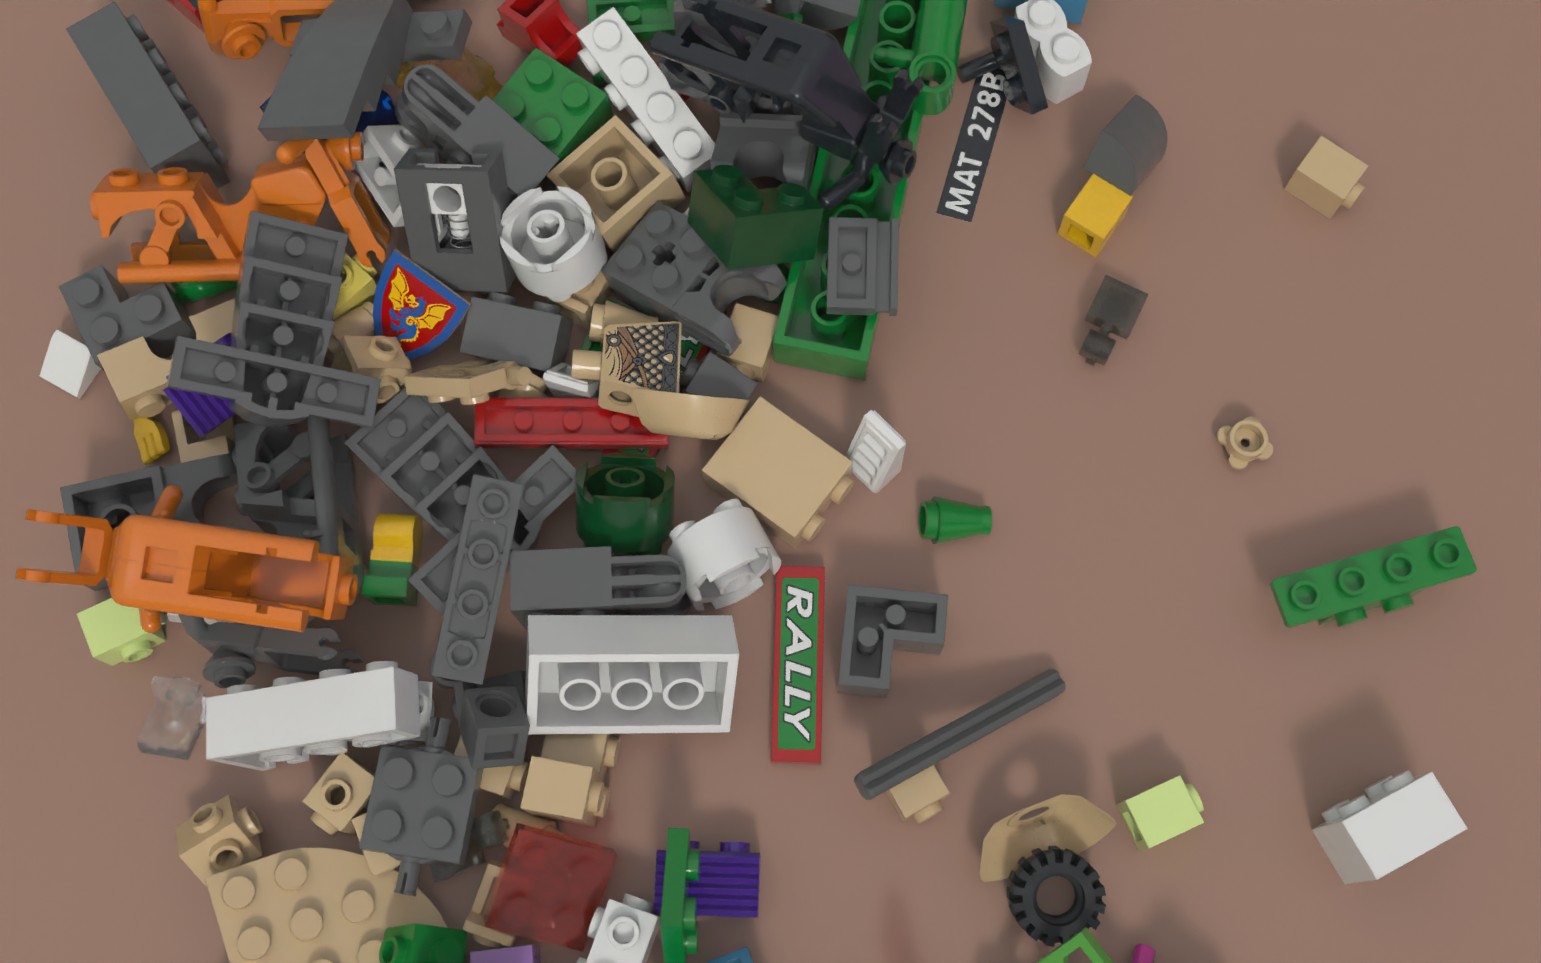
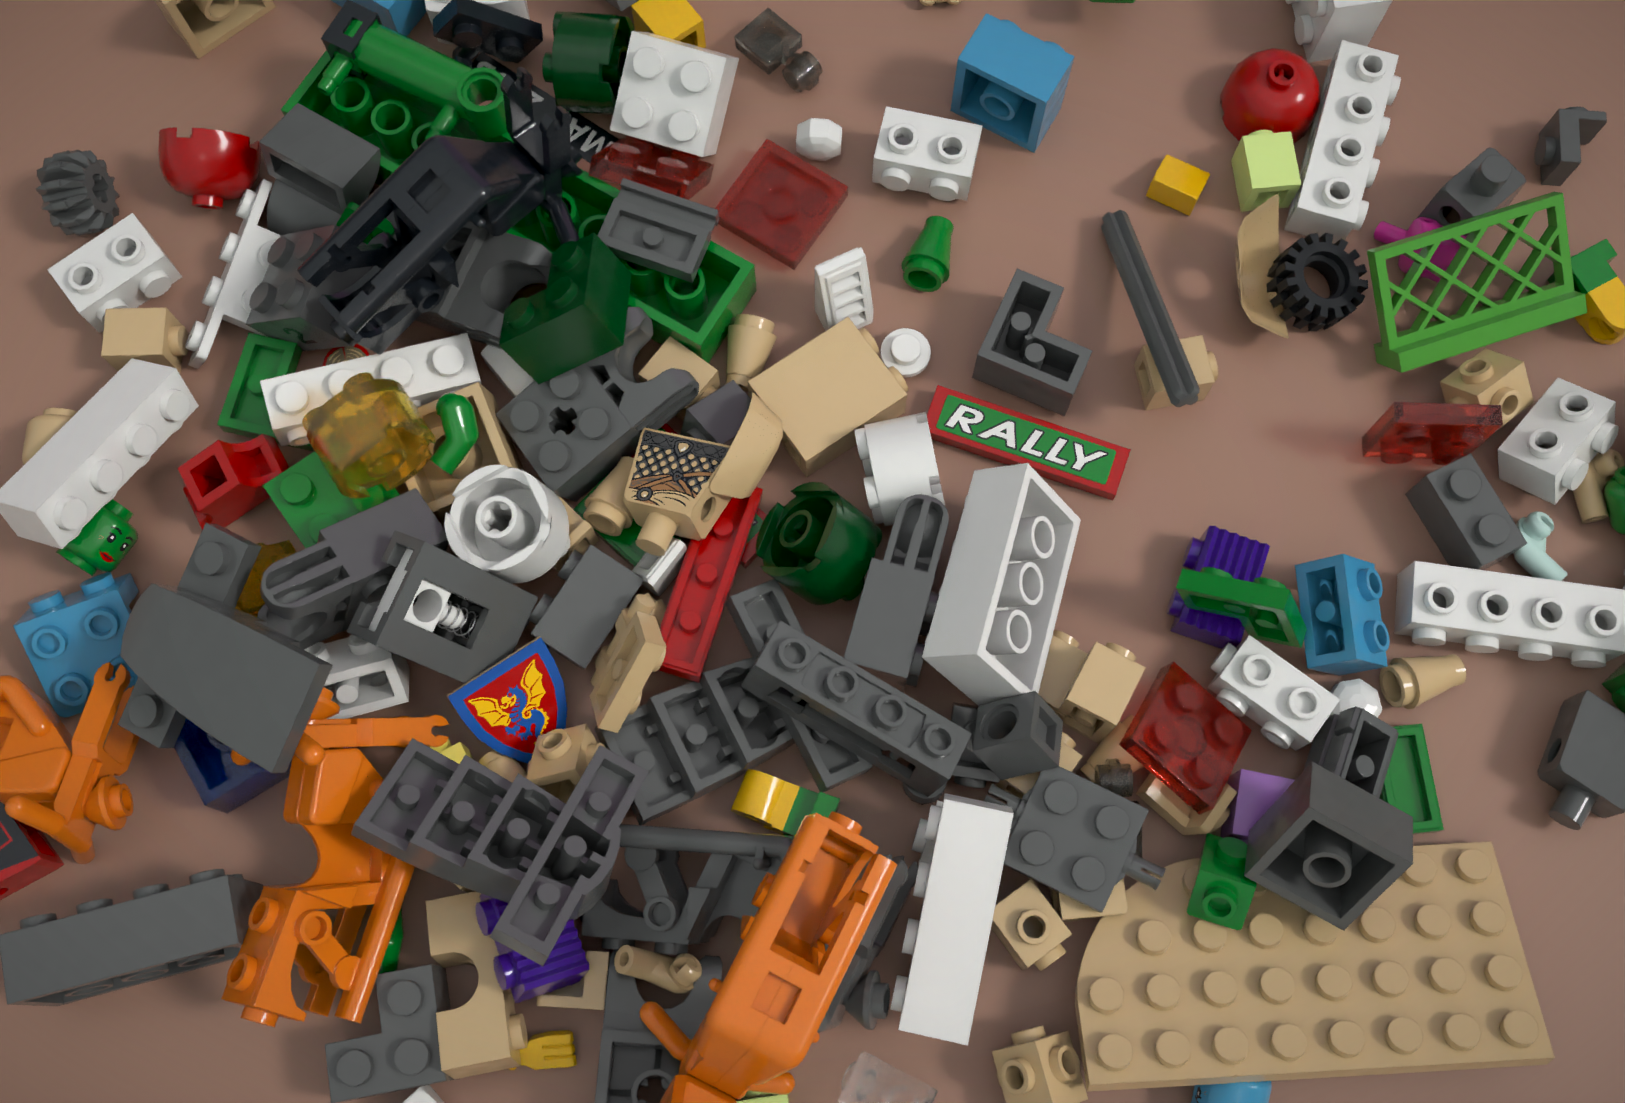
camera: 75 degrees left, 0 degrees up
(221, 502) = (659, 969): none -> tan arm
(585, 103) = (369, 435): none -> clear yellow brick
(622, 173) = (459, 428): none -> green arm
(800, 391) = (748, 348): none -> tan cone
(848, 529) = (906, 351): none -> white plate
(937, 248) = (657, 168): none -> clear red plate
(954, 372) = (780, 204): none -> clear red plate
(1017, 239) = (673, 93): none -> white brick
(1023, 162) = (587, 60): none -> dark green brick
(1030, 384) = (819, 139): none -> white tile
(1048, 482) = (926, 154): none -> white brick
(1119, 733) = (1177, 184): none -> yellow slope
(1151, 534) = (1011, 82): none -> dark azure brick
(1224, 883) = (1343, 142): none -> white brick
(1232, 814) = (1271, 93): none -> red cylinder

